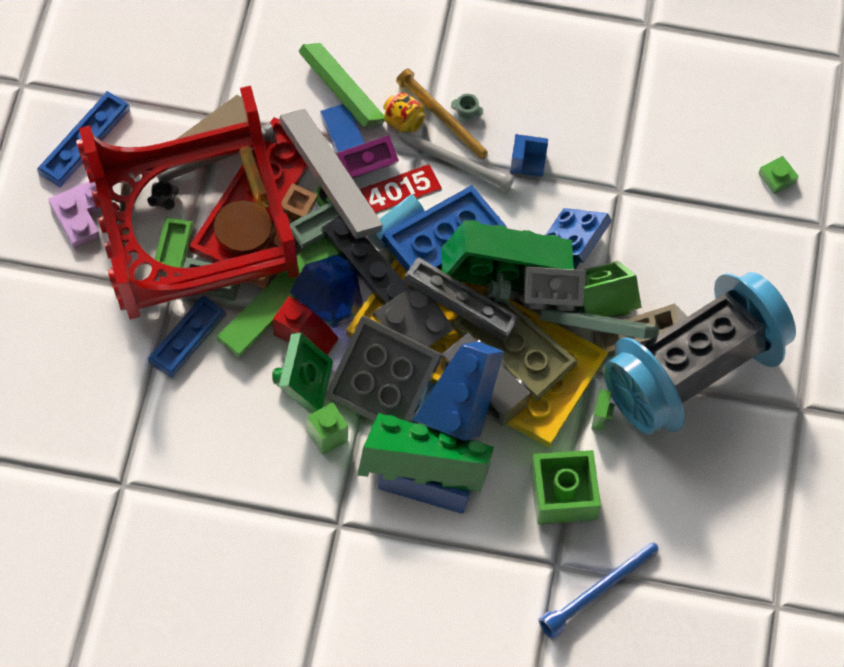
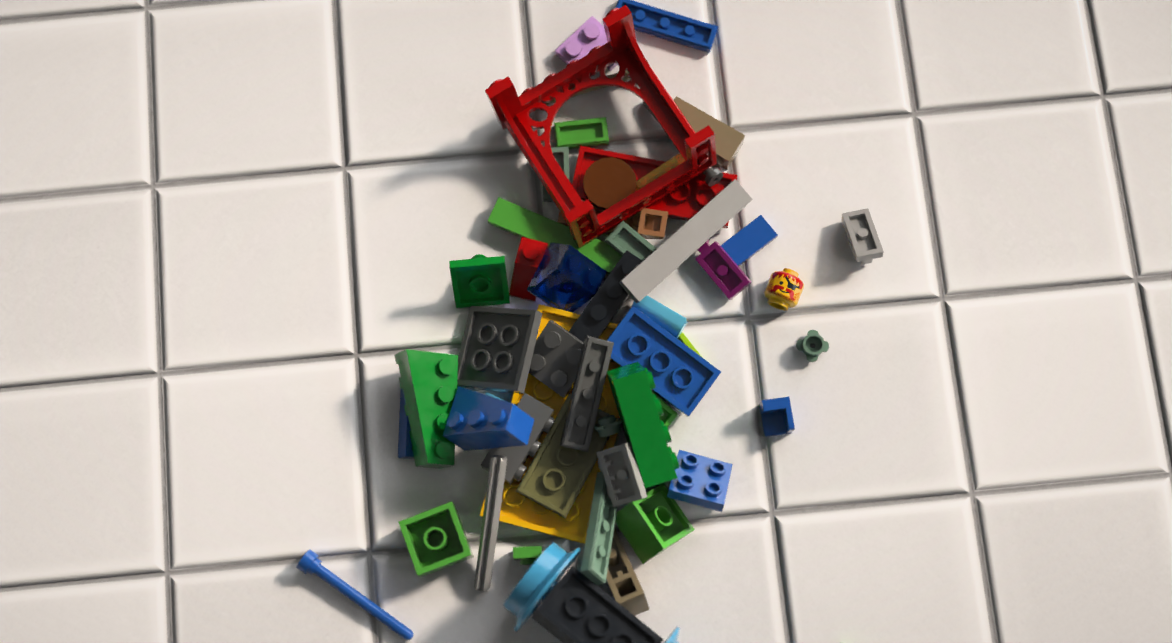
camera: 80 degrees right, 15 degrees up
(163, 188) = (628, 101): black plate -> none
(187, 336) = (496, 173): blue tile -> none
(327, 428) = (437, 316): bright green brick -> none
(342, 84) = (795, 225): bright green tile -> none
(373, 31) = (862, 235): none -> light grey hinge
(397, 188) = (705, 309): red sticker -> none
(406, 78) = (823, 282): pearl gold bar -> none
(504, 182) = (741, 402): light grey bar -> none
(564, 426) = (490, 522): none -> light grey axle

